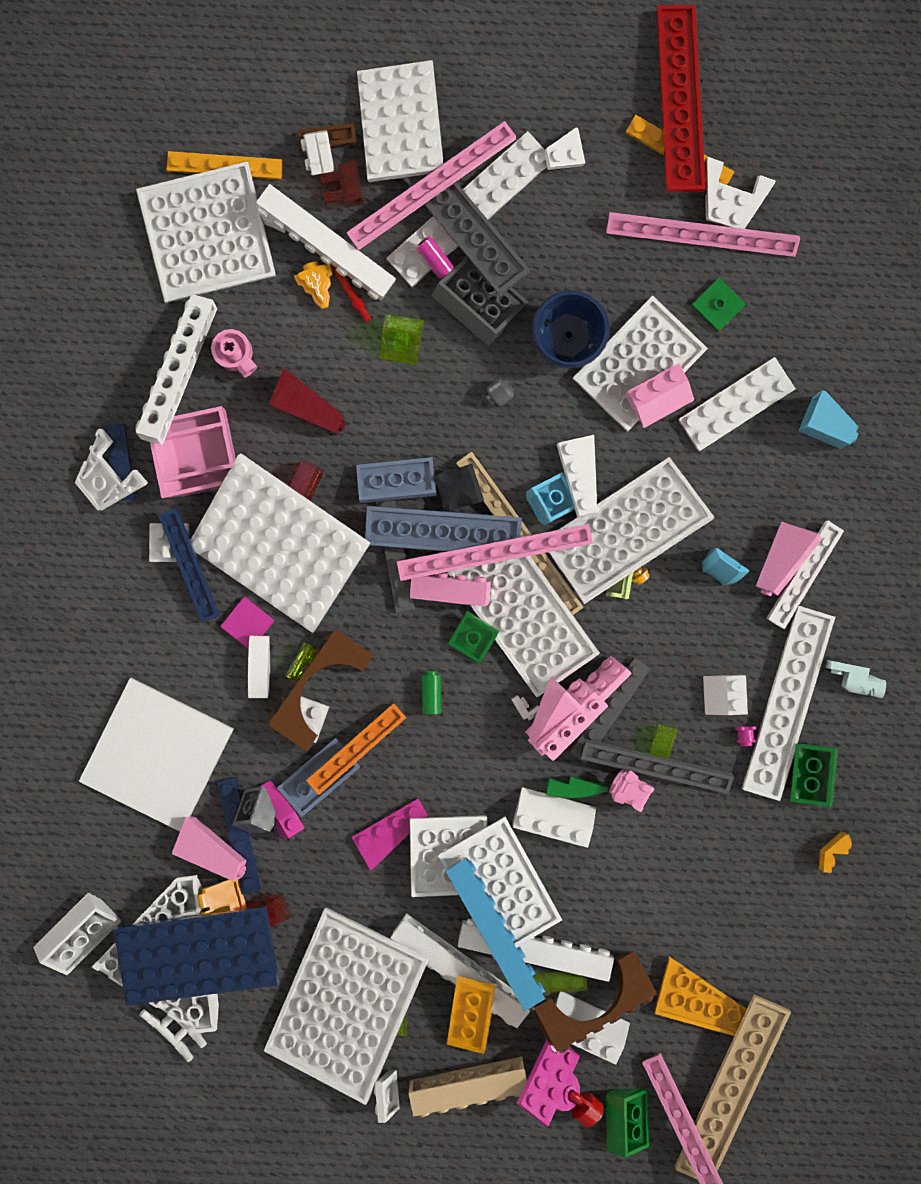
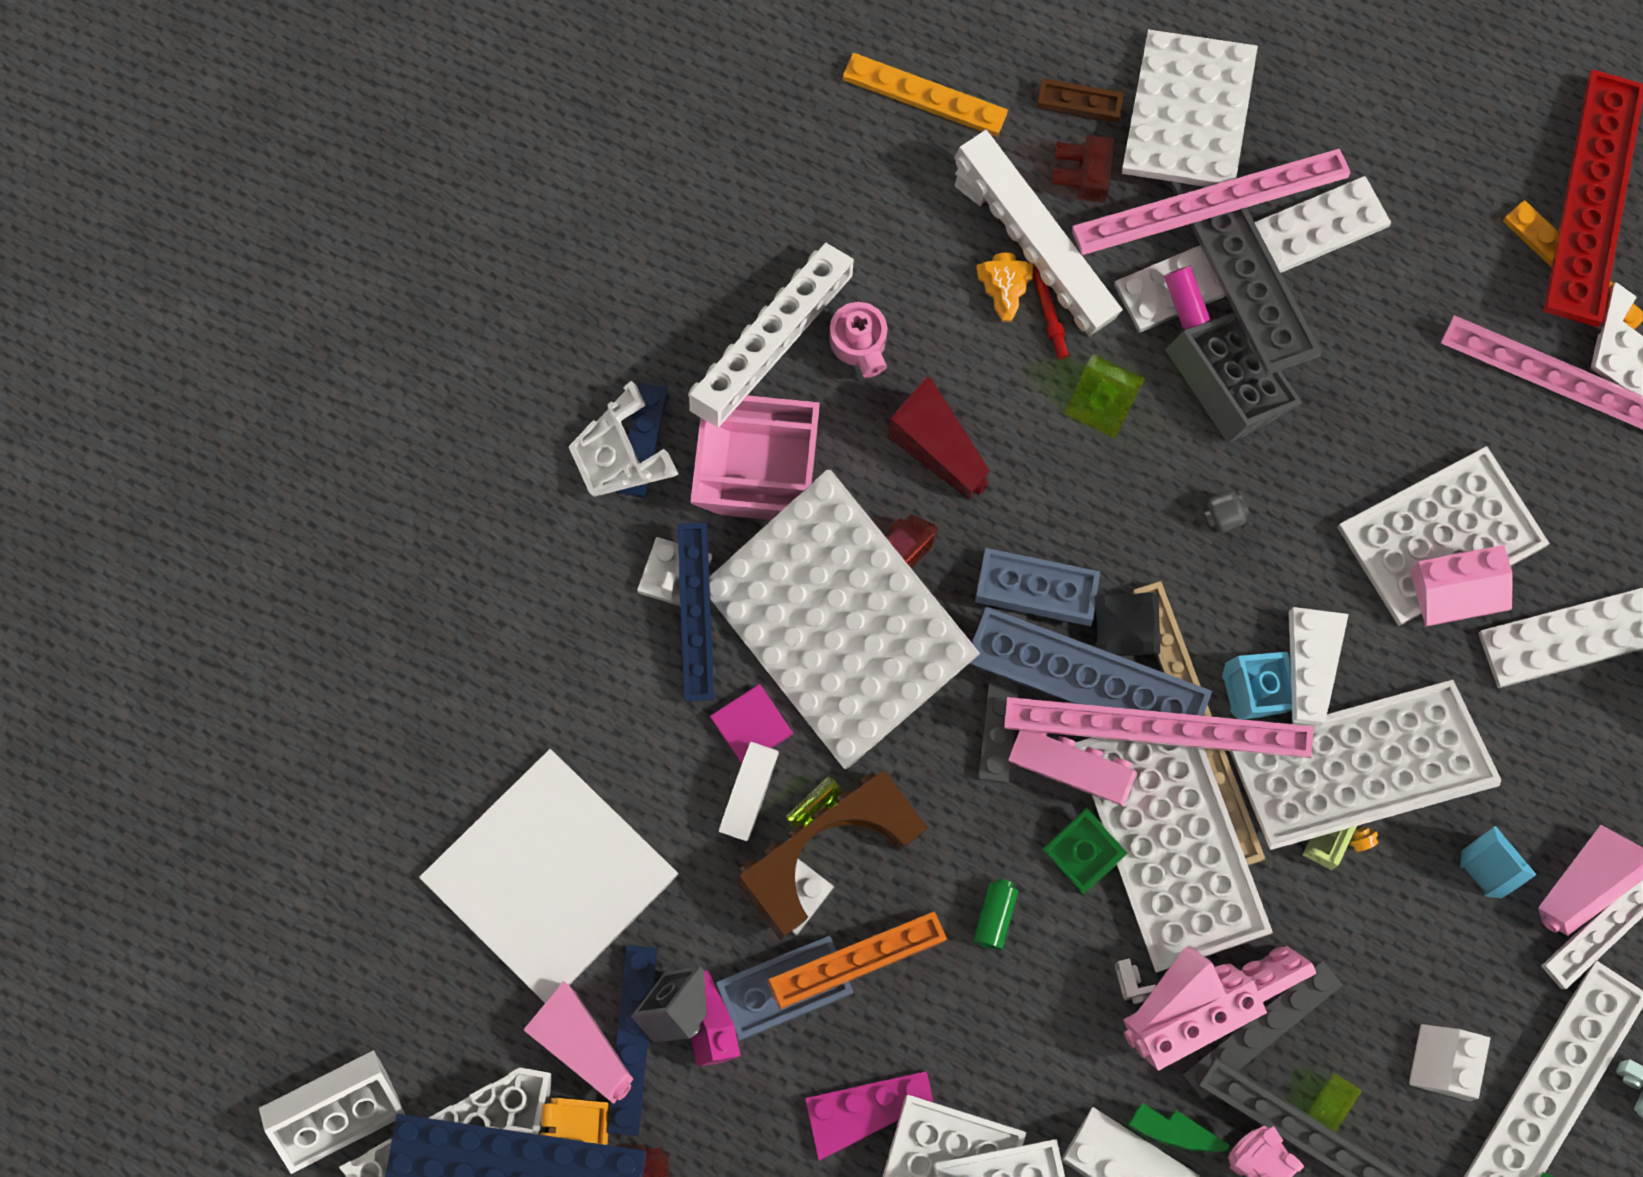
camera: 15 degrees right, 15 degrees down
(206, 232) = (871, 171): white tile -> none
(318, 152) = (1063, 114): white brick -> none
(565, 152) = (1411, 219): white wing -> none
(574, 314) = (1367, 435): dark blue piece -> none
(718, 304) = (1579, 490): green plate -> none
(745, 735) = (1465, 1135): dark pink brick -> none

